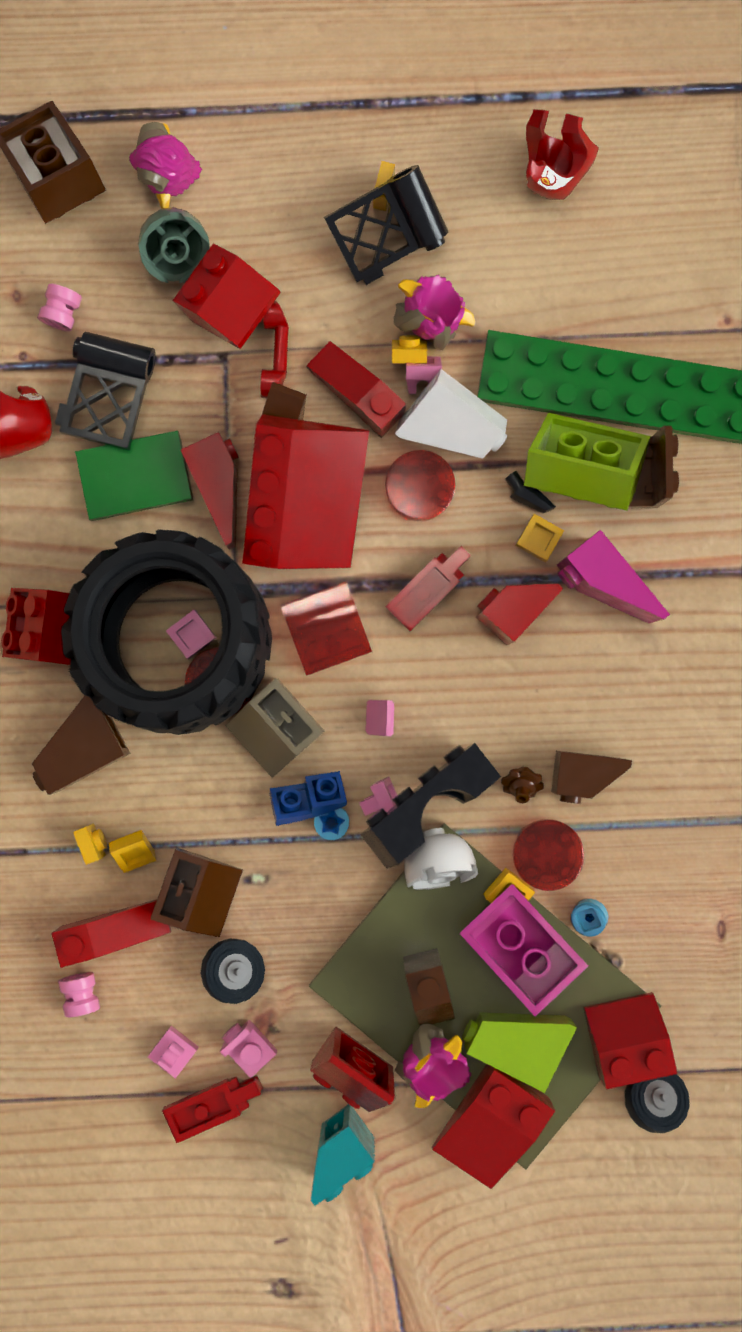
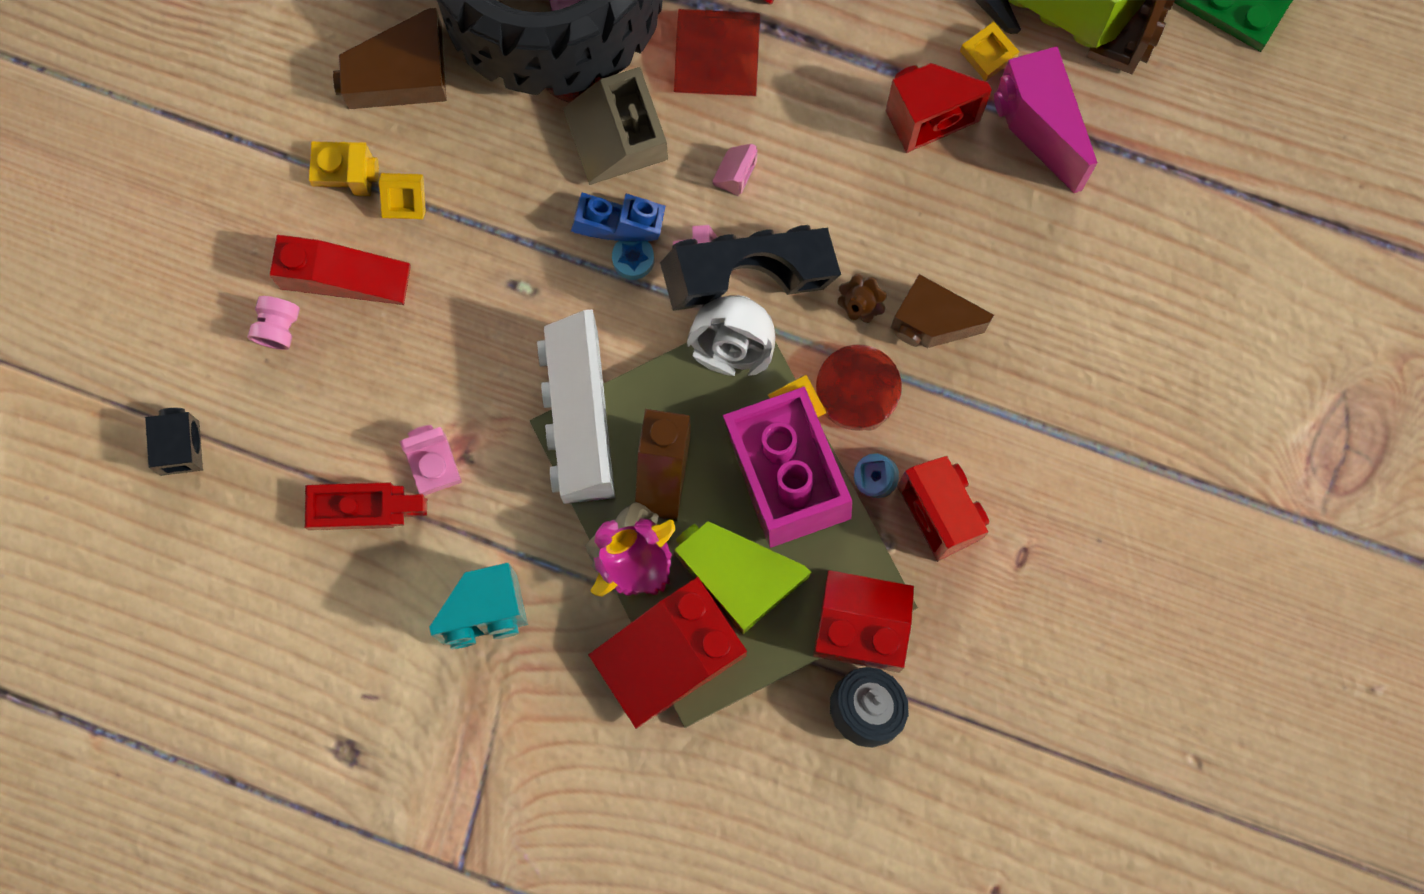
camera: 20 degrees right, 10 degrees down
(46, 1119) = (173, 442): none -> black brick
(62, 845) = (329, 164): none -> yellow plate
(173, 1052) = (346, 432): bright pink tile -> none
(196, 893) = (451, 263): reddish brown slope -> none
(232, 971) = (453, 366): black wheel -> none
(347, 974) = (578, 409): none -> white slope
(354, 1071) = (535, 523): red slope -> none
(428, 588) = (846, 54): hinge -> none
(653, 926) = (942, 506): none -> red slope

